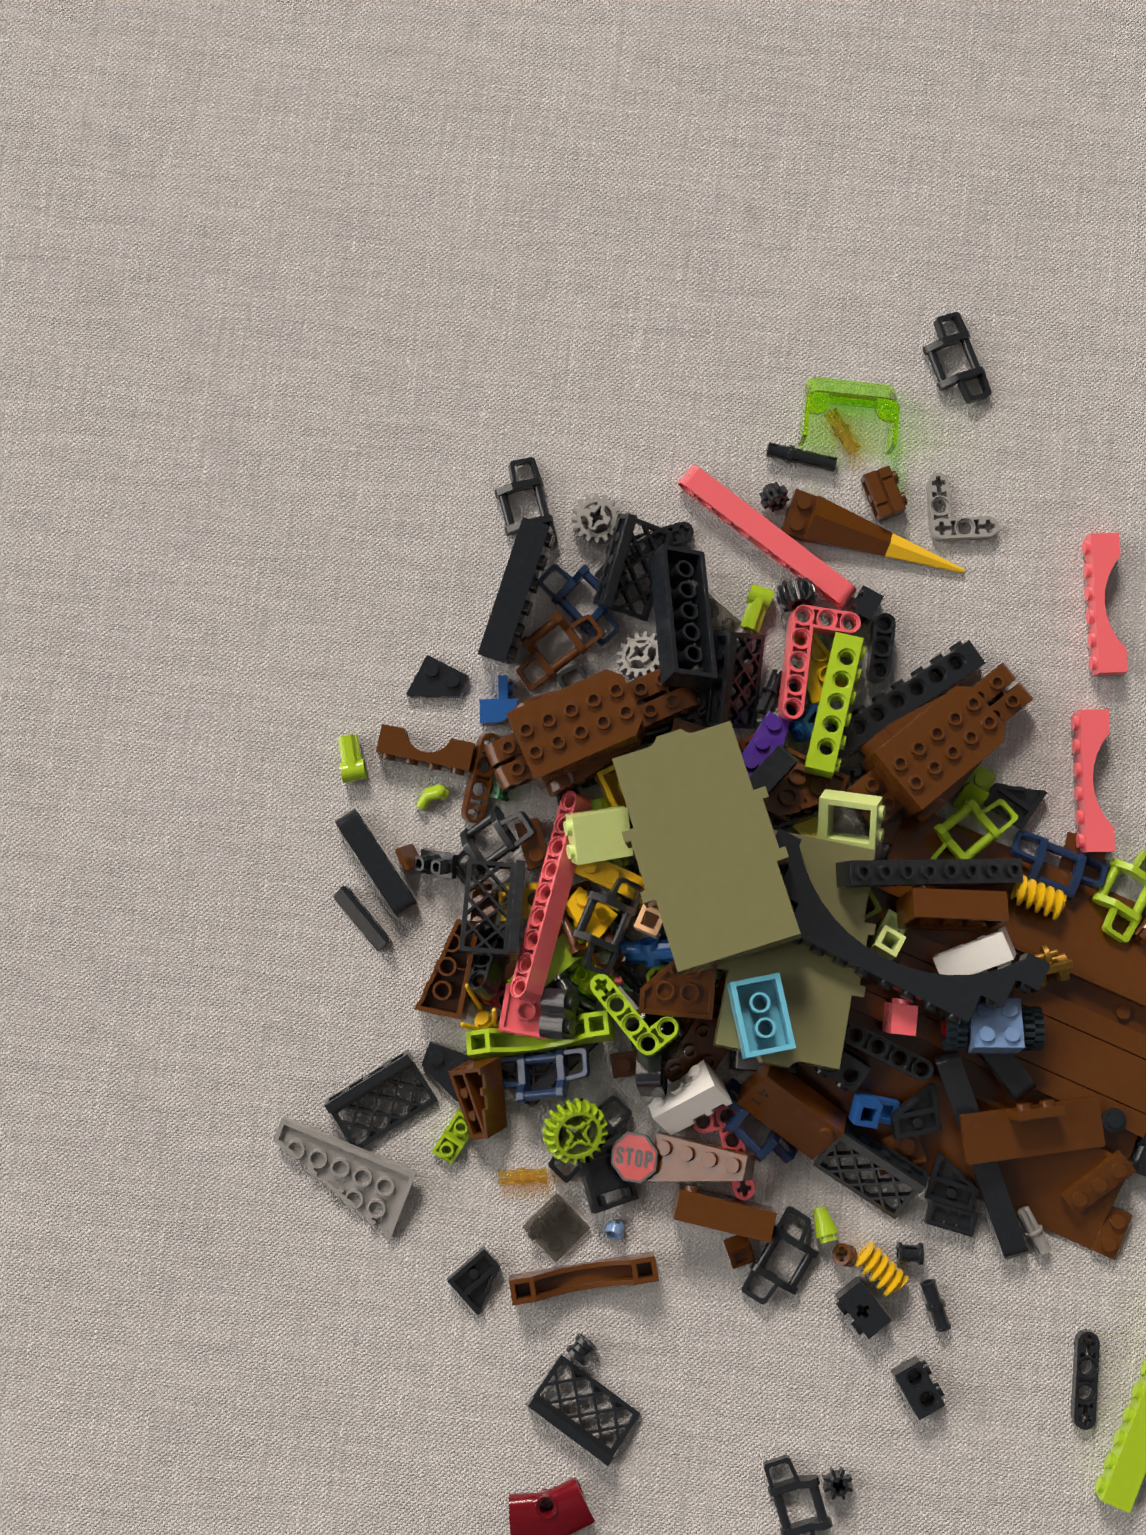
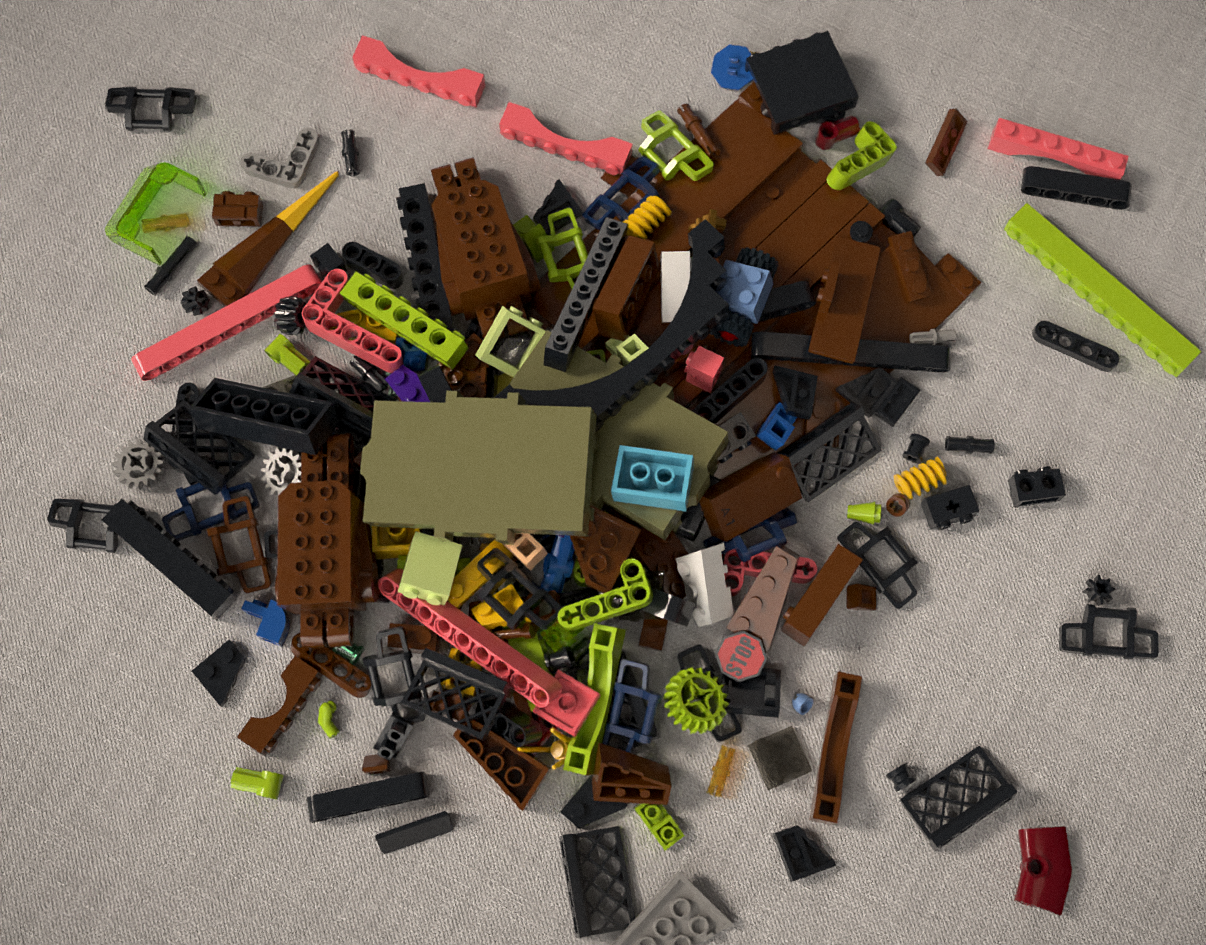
camera: 70 degrees left, 10 degrees down
(559, 1013) = (580, 670): black brick -> none
(989, 574) = (350, 152): none -> black pin

